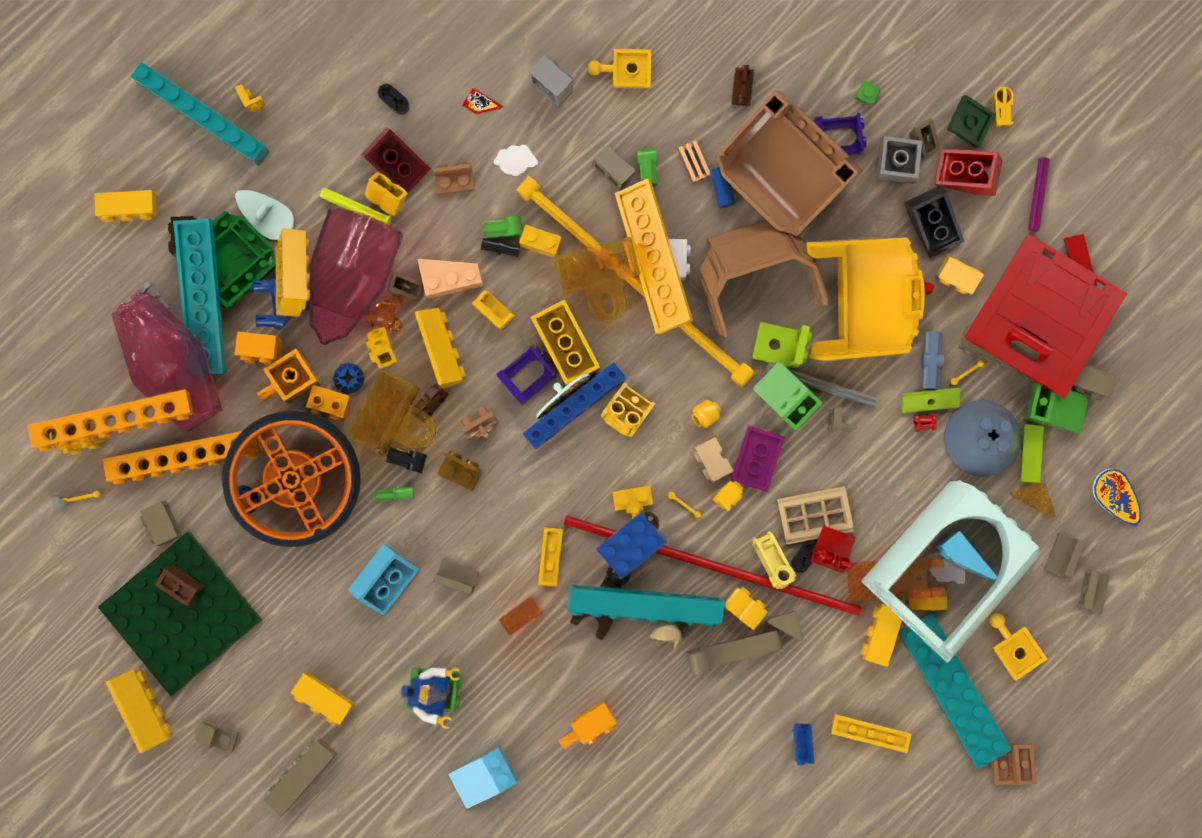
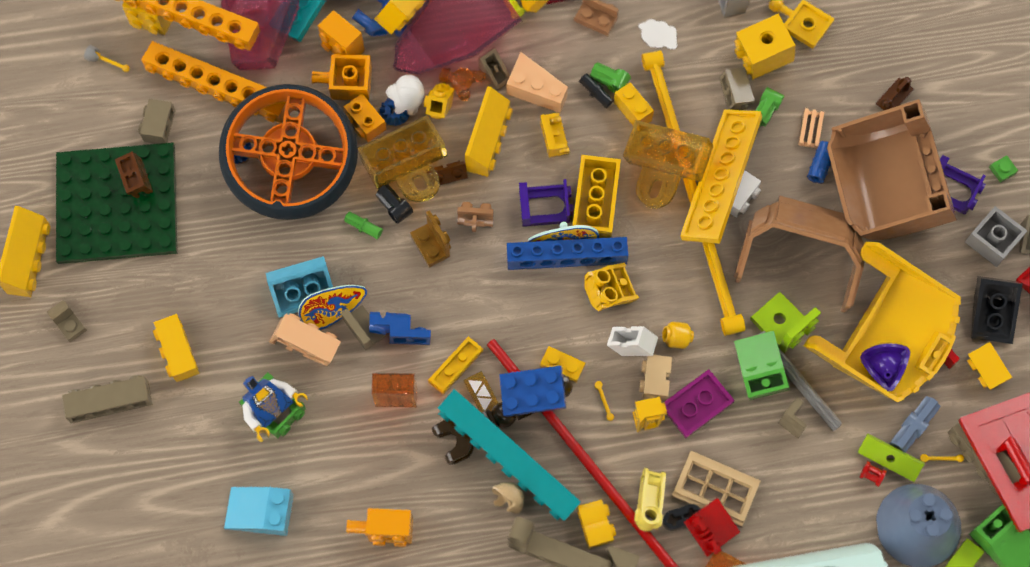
camera: 35 degrees right, 15 degrees down
(350, 361) = (406, 94): none -> white hair
(419, 580) = (326, 306): none -> shield
(420, 621) = (305, 339): none -> light nougat wedge
(485, 559) = (399, 328): none -> blue plate
(587, 565) = (480, 392): none -> clear yellow tile
(613, 130) = (765, 46): none -> yellow brick
(676, 445) = (633, 341): none -> white brick
(882, 328) = (886, 363): none -> dark purple hat

